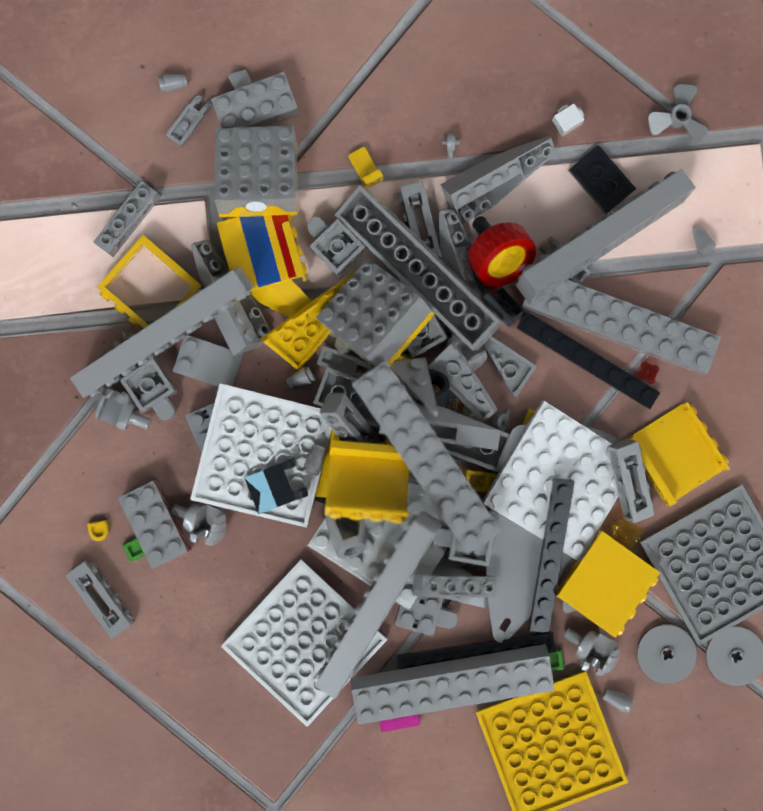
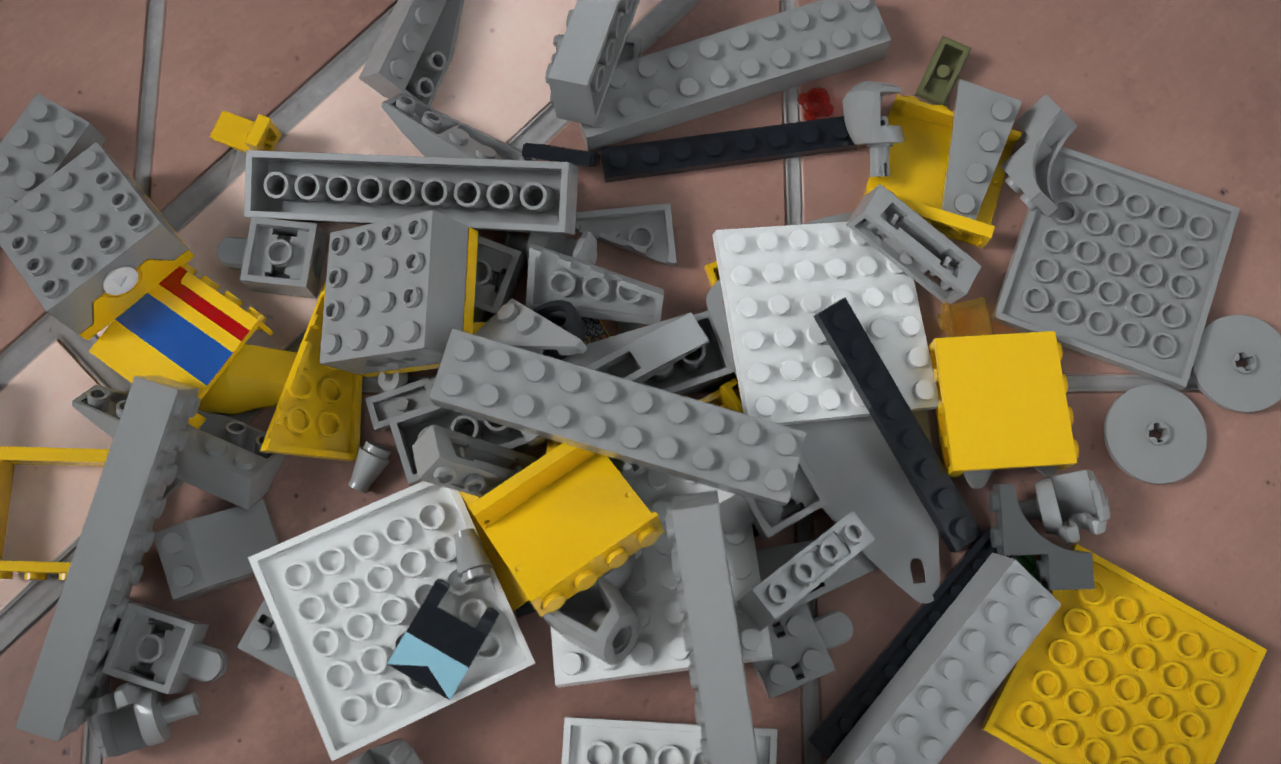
camera: 45 degrees left, 10 degrees down
(412, 192) = (336, 113): light grey brick -> none
(450, 142) = (334, 24): light grey piece -> none
(500, 252) = (502, 93): red wheel -> none
(501, 420) = (682, 304): light grey piece -> none
(566, 675) = (1014, 535): none -> dark grey arch
(619, 700) = (1152, 547): light grey cone -> none
(661, 407) = (866, 125): none -> light grey piece
(701, 458) = (977, 141): none -> light grey wing
(722, 406) = (943, 71): none -> olive slope
(742, 476) = (1030, 166): none -> light grey arch

